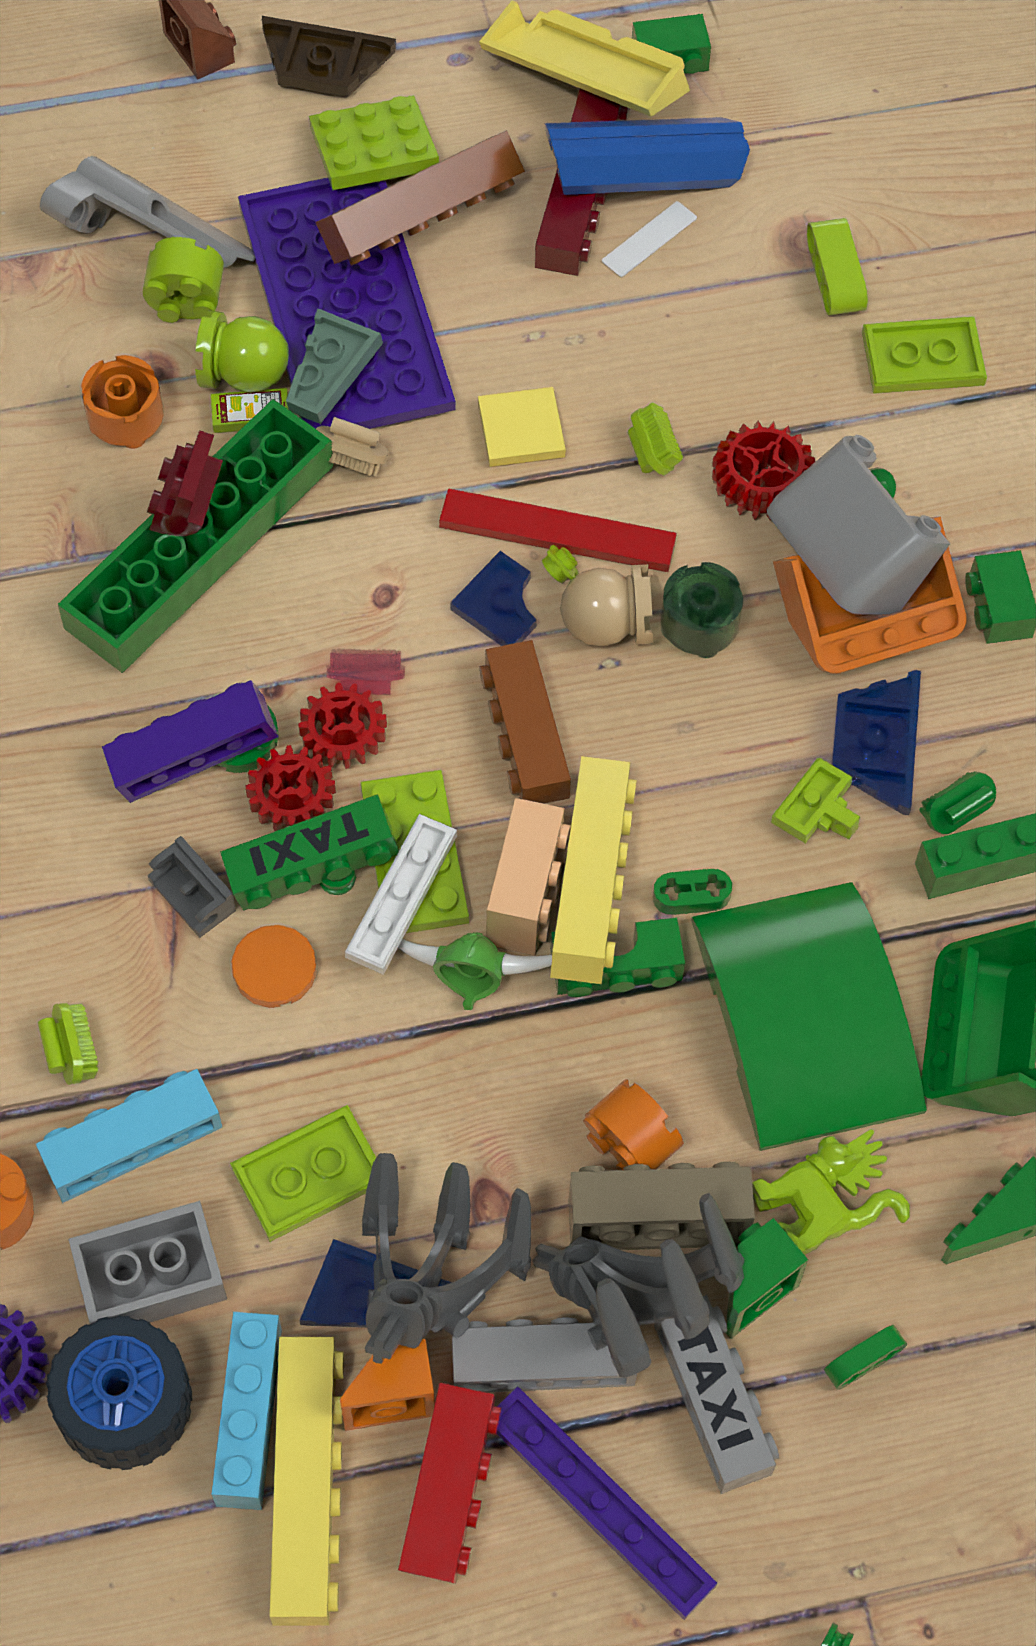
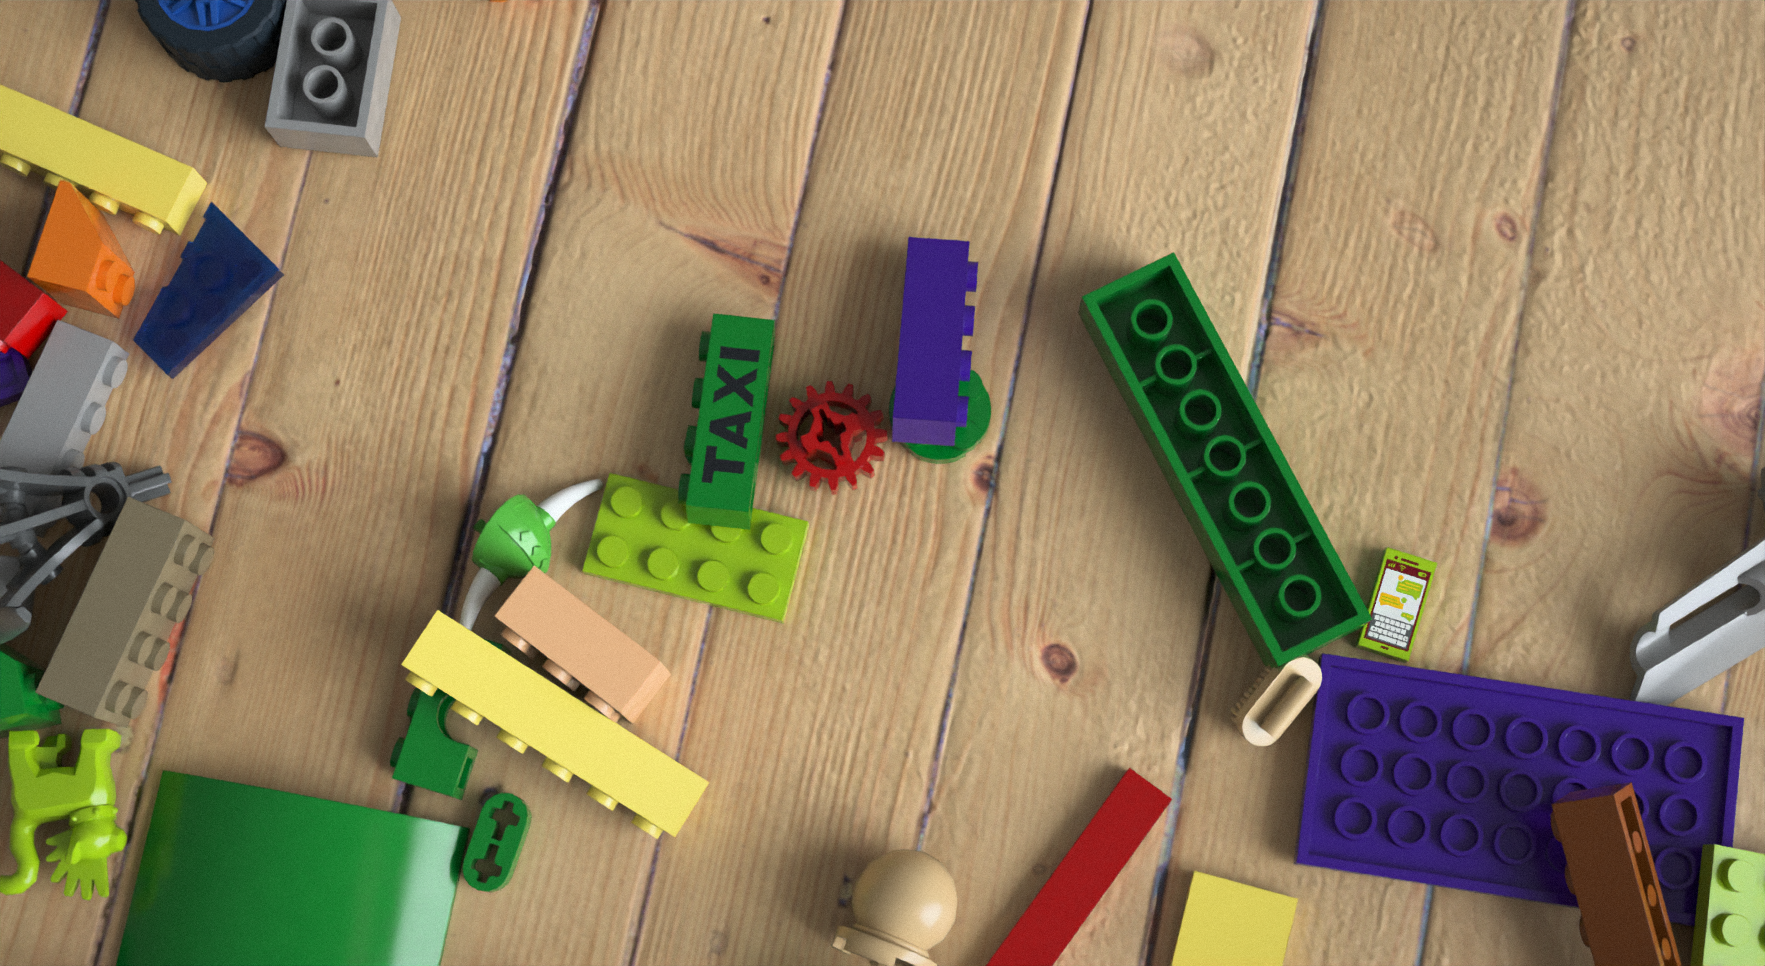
camera: 120 degrees right, 15 degrees up
(69, 1043) = (631, 86): lime piece -> none
(122, 401) = (1455, 415): orange brick -> none
(129, 1134) = (497, 111): medium azure brick -> none
(182, 279) = (1618, 586): lime brick -> none
(187, 488) = (1258, 448): dark red brick -> none
(191, 887) = (761, 284): dark grey hinge -> none
(244, 353) = (1469, 618): lime tile -> none
(247, 1411) = (145, 114): medium azure brick -> none
(274, 966) = (627, 337): orange tile -> none
(306, 1173) = (374, 281): lime tile -> none
(331, 363) = (1409, 723): sand green wing -> none
(343, 725) = (909, 517): red gear -> none
(365, 668) = (954, 588): clear pink piece -> none
(401, 894) = (635, 502): white tile -> none
(407, 1309) = (232, 396): dark grey piece -> none
(496, 602) = (988, 789): clear blue tile -> none
(526, 723) = (795, 744): dark orange brick -> none
(560, 564) = (999, 888): lime plate -> none
(631, 1128) = (228, 625): orange brick -> none

